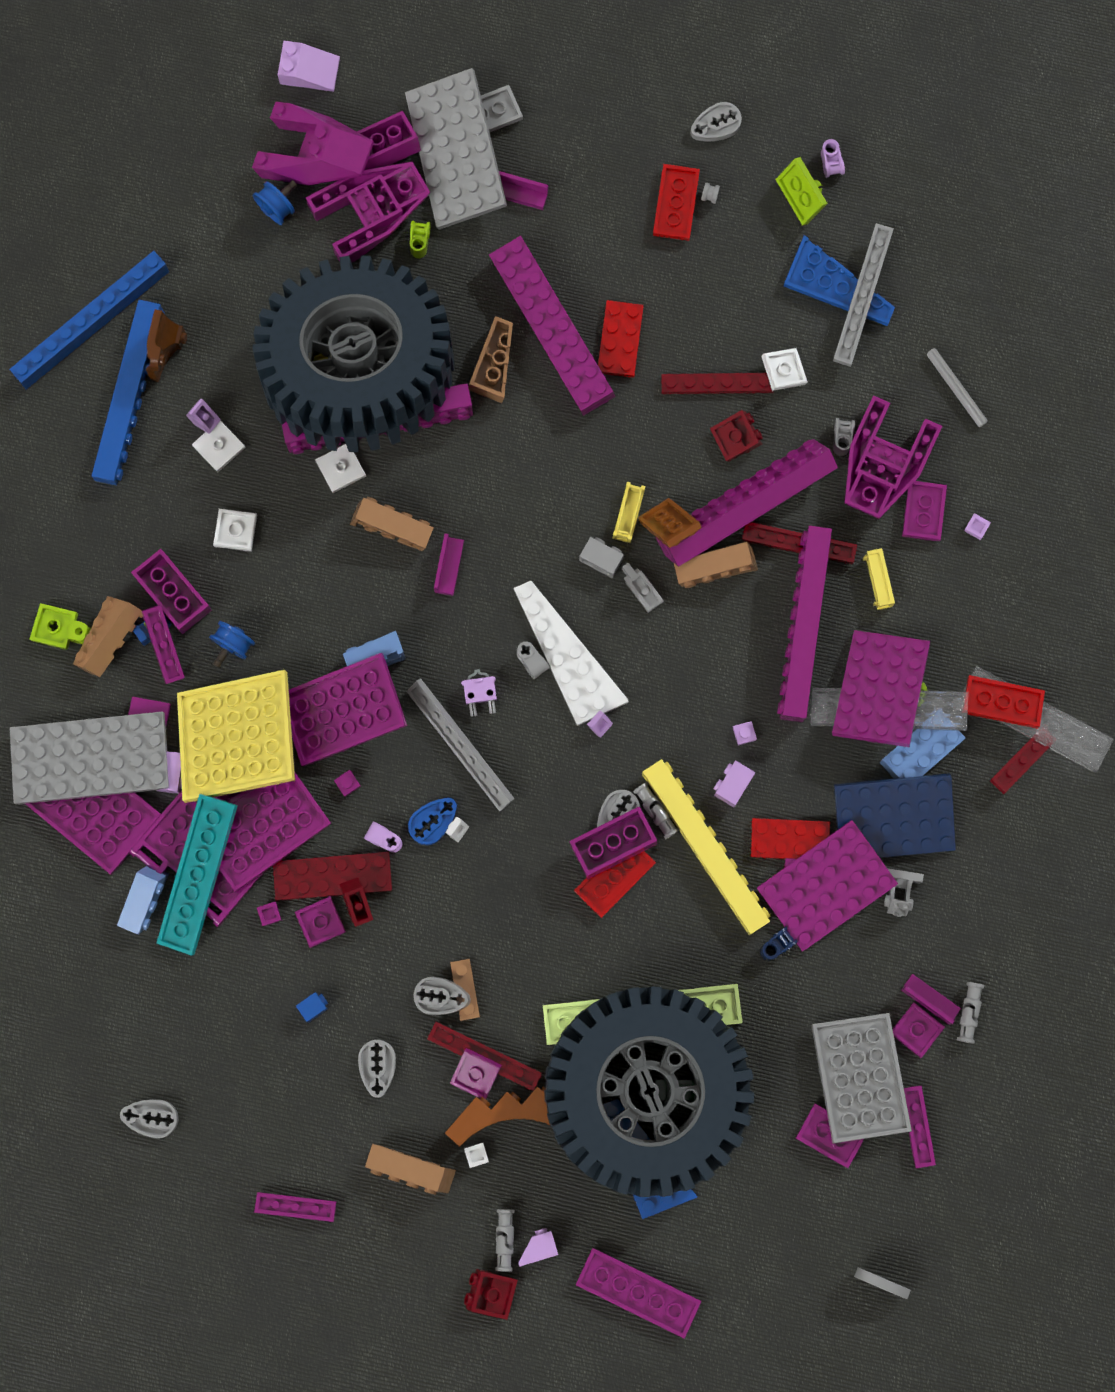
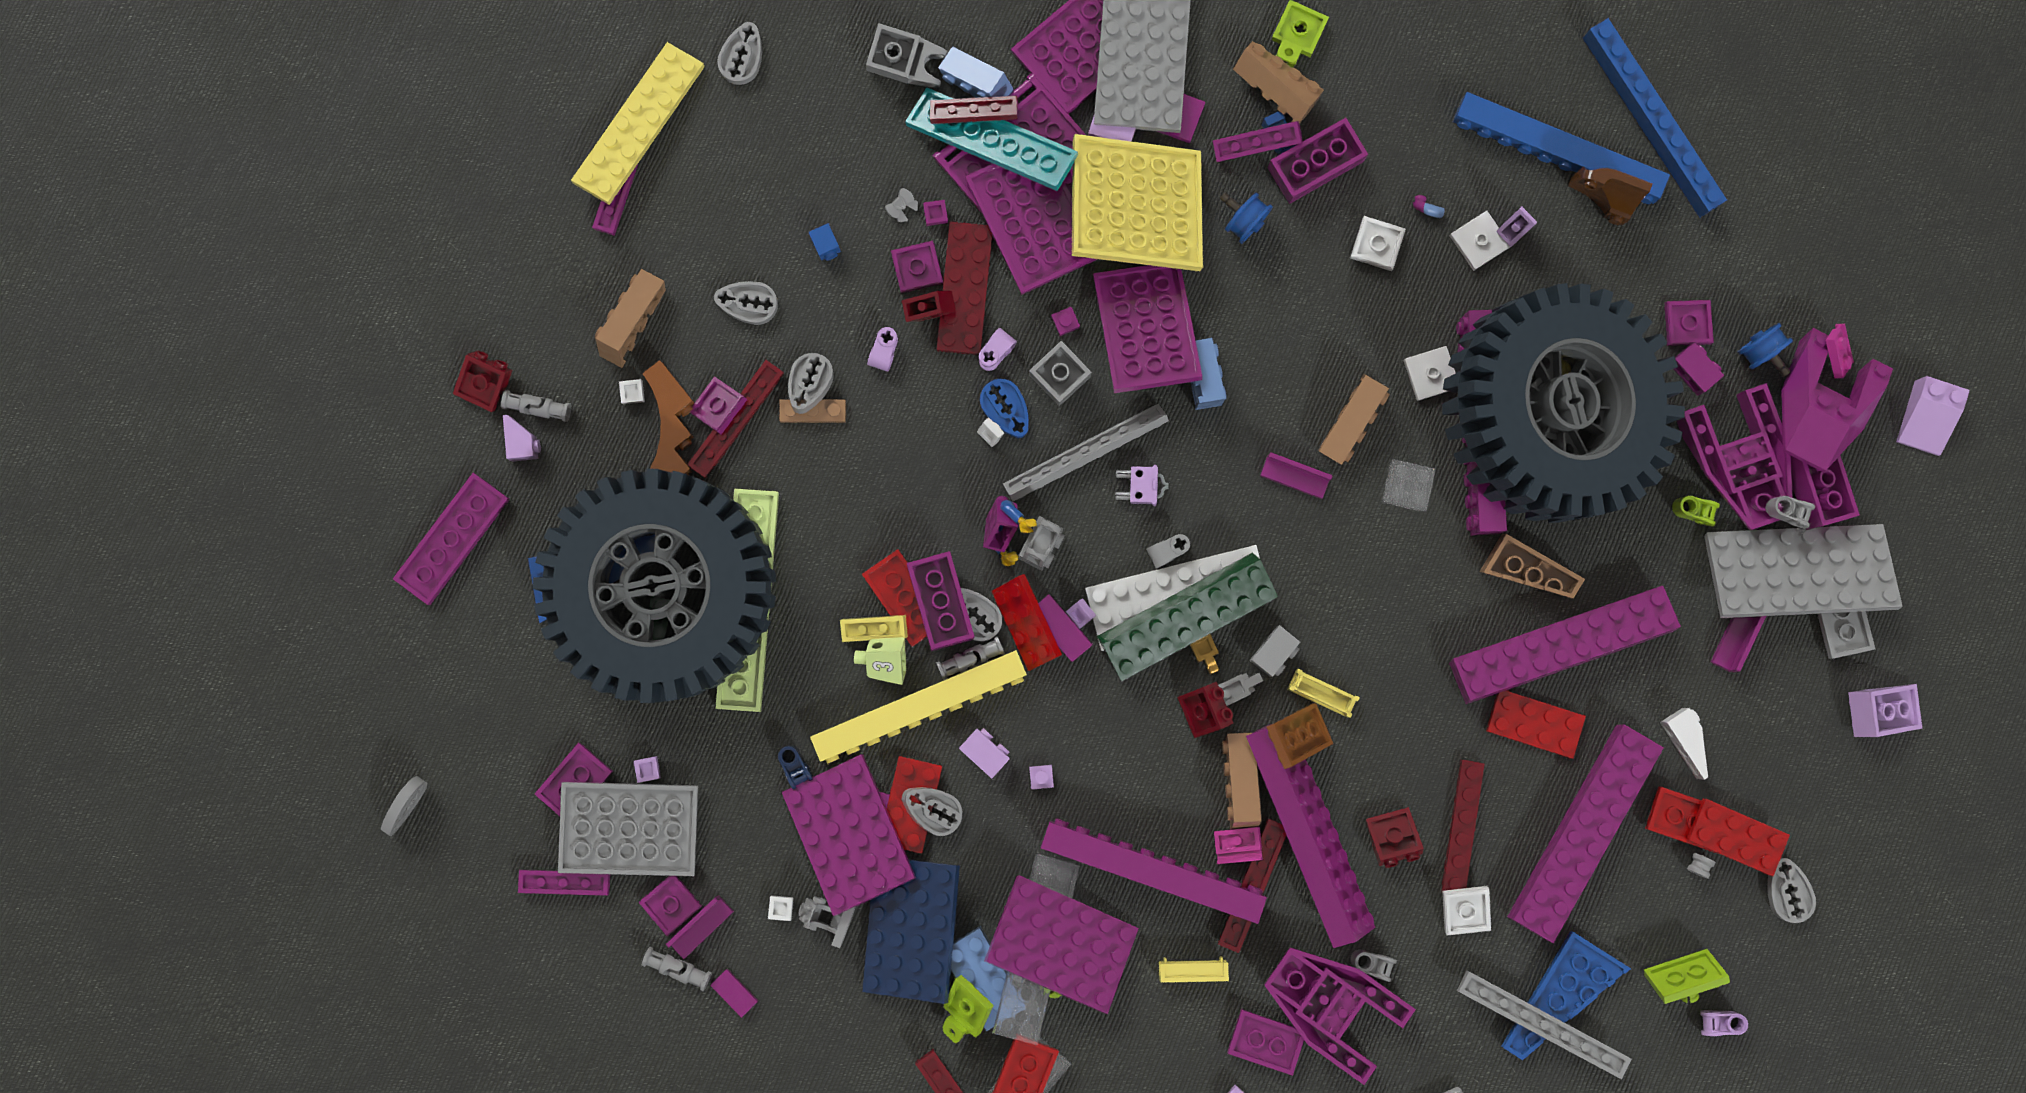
camera: 105 degrees right, 5 degrees up
(133, 961) = (910, 59): none -> light grey brick
(173, 893) = (974, 109): none -> plate
(198, 493) = (1428, 209): none -> arm
(230, 1198) = (637, 123): none -> light yellow plate
(260, 943) = (904, 199): none -> light grey piece
(261, 267) = (1688, 322): none -> magenta tile
(267, 144) = (1839, 351): none -> dark pink plate
(300, 254) = (1697, 369): none -> magenta brick
(395, 777) = (1060, 373): none -> light grey brick
(404, 936) = (883, 353): none -> lavender piece
(409, 161) = (1794, 510): none -> light grey piece
(440, 471) = (1408, 485): none -> clear plate
(537, 802) = (1001, 526): none -> magenta torso
(547, 766) = (1040, 544): none -> light grey brick
(557, 70) = (1885, 711): none -> lavender slope
(586, 633) = (1187, 616): none -> brick
(608, 218) = (1687, 736): none -> white slope
(612, 615) = (1204, 650): none -> pearl gold plate
(616, 738) = (1065, 631): none -> magenta panel
(617, 767) = (1026, 622): none -> red plate
(646, 897) = (873, 628): none -> light yellow plate
(662, 604) = (1206, 709): none -> dark red plate
(671, 883) = (884, 659): none -> yellowish green torso
(682, 168) = (1738, 837): none -> red plate
(702, 286) = (1585, 832): none -> magenta brick
(769, 559) = (1238, 845): none -> dark pink plate
(782, 814) = (939, 800): none -> light grey piece
(806, 1073) = (647, 769): none -> lavender plate
(900, 933) = (780, 908): none -> white plate
(959, 757) = (965, 1018): none -> lime plate
(979, 959) = (734, 993): none -> magenta tile

